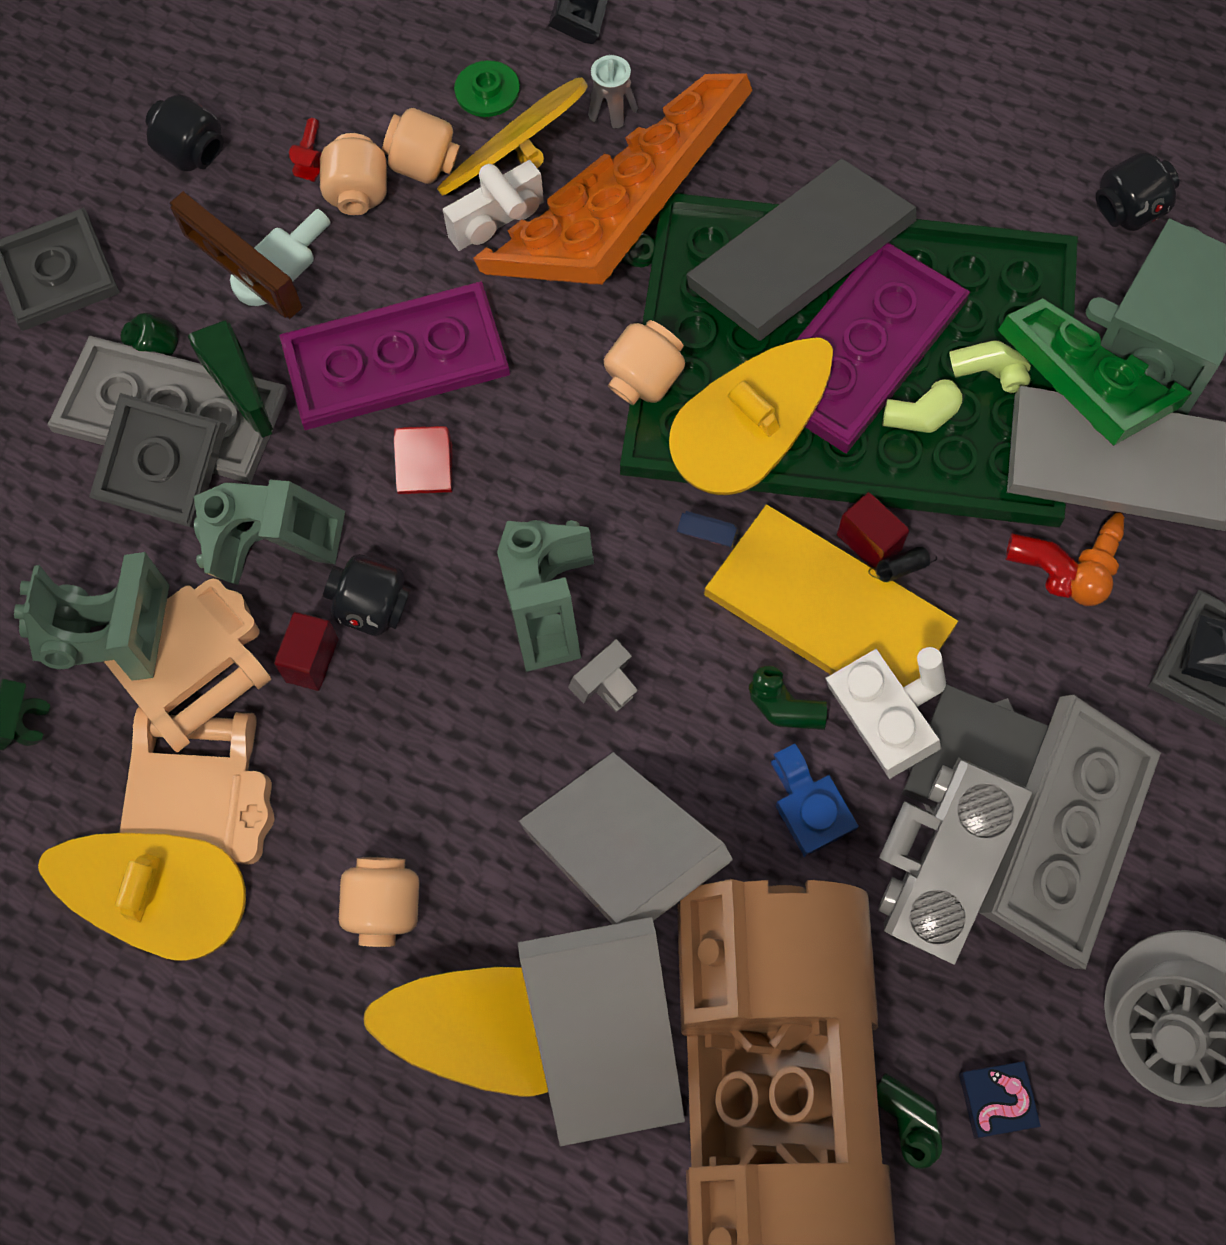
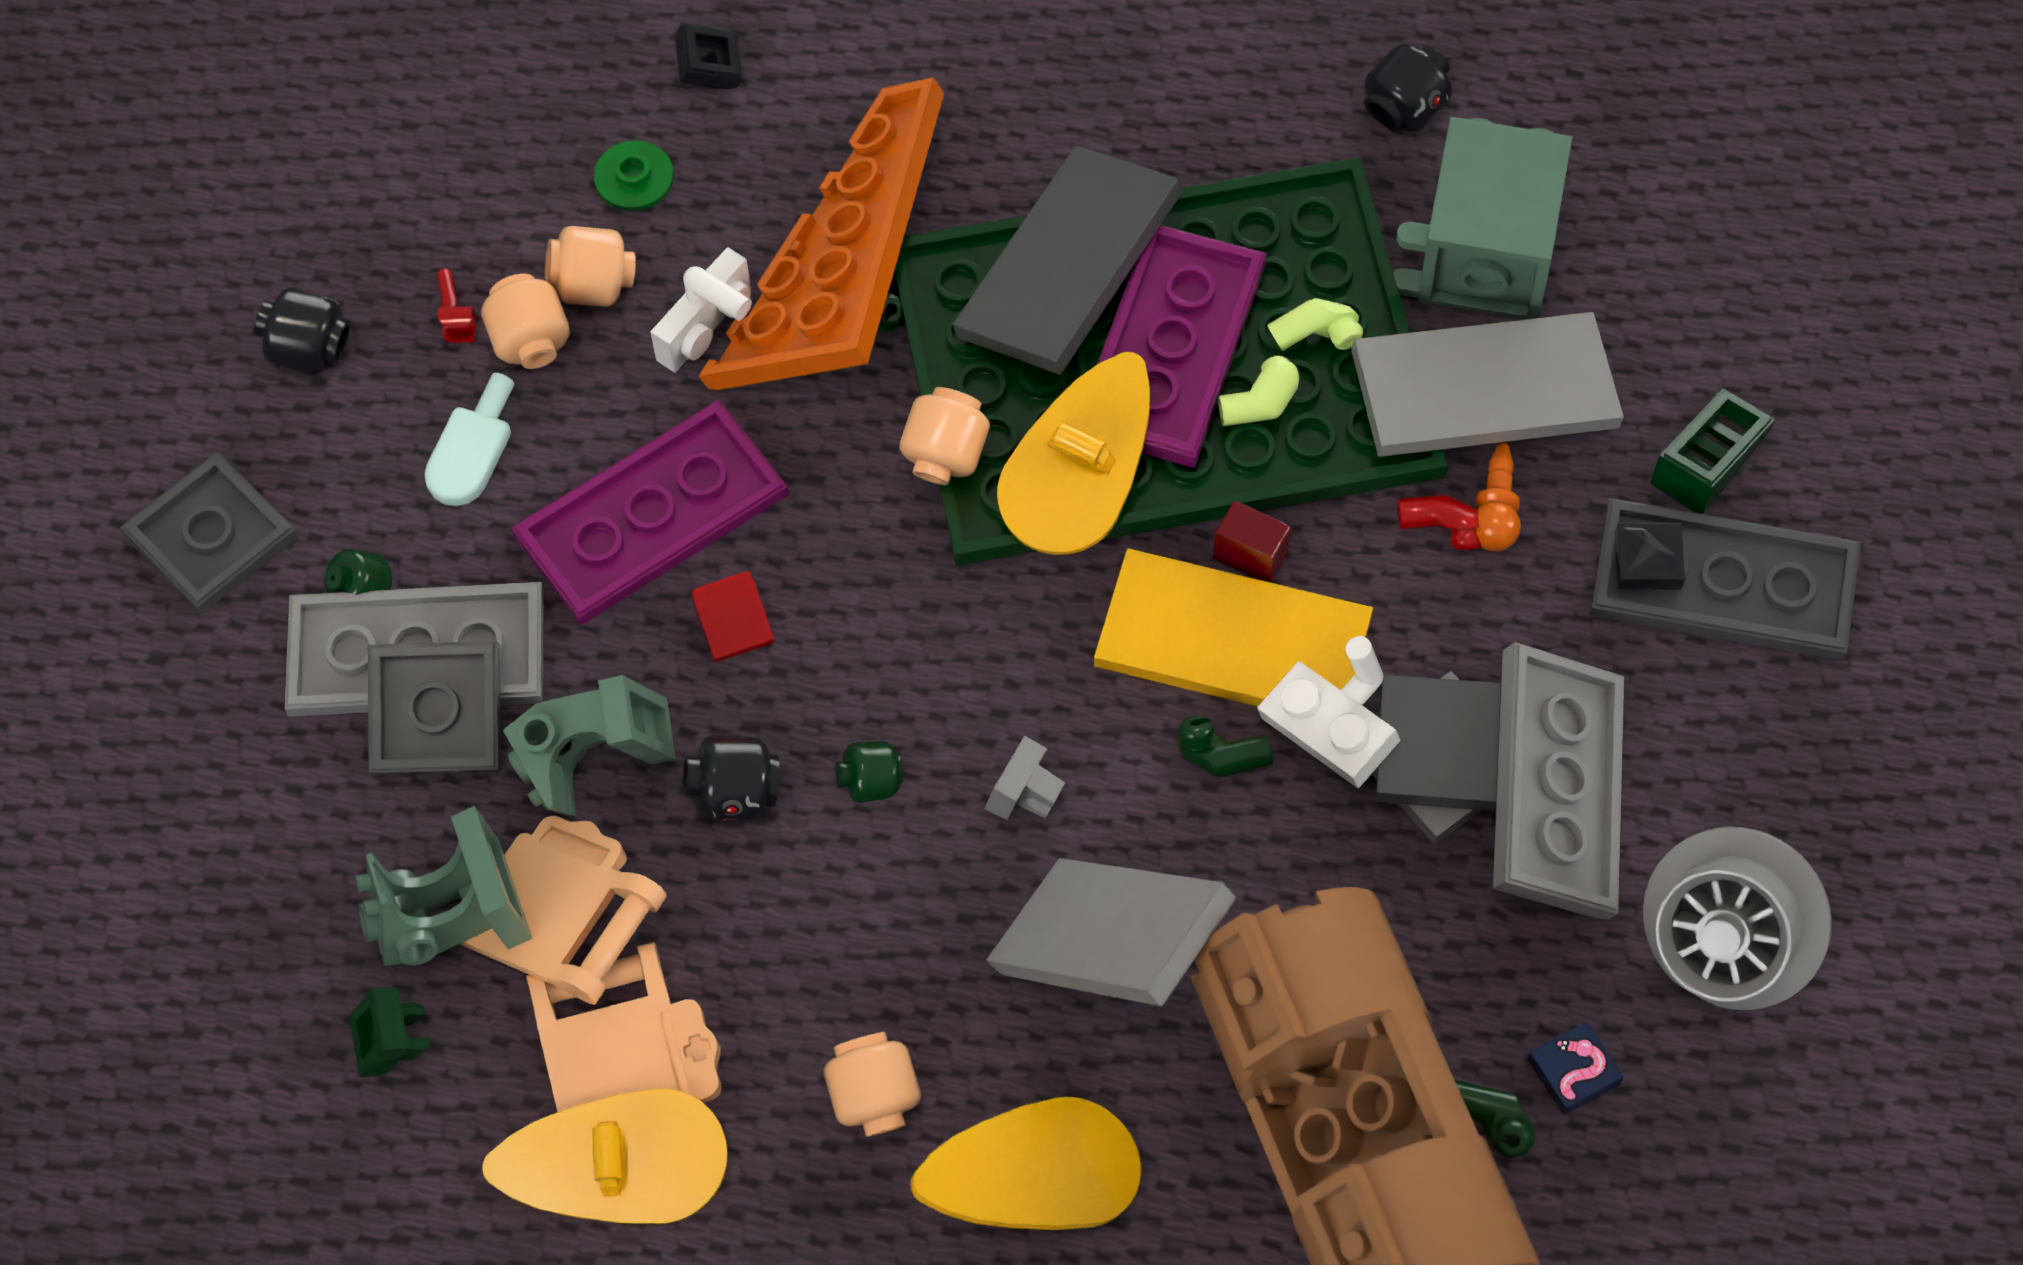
camera: 20 degrees left, 5 degrees down
(226, 363) = (478, 579): dark green slope -> none
(236, 256) = (433, 453): reddish brown tile -> none
(306, 651) = (689, 858): dark red piece -> none
(486, 625) = (870, 771): none -> dark green piece
(517, 134) = (699, 221): yellow shield -> none
(533, 598) = (896, 685): sand green tile -> none
(603, 1030) = (1164, 1116): light grey tile -> none
(611, 81) = (784, 129): piece -> none
(708, 529) = (1077, 593): dark blue tile -> none
(813, 809) = (1287, 848): blue plate -> none
(902, 564) = (1294, 567): black piece -> none
(949, 883) = (1459, 815): light grey piece -> none
(1099, 384) = (1432, 311): green wing -> none

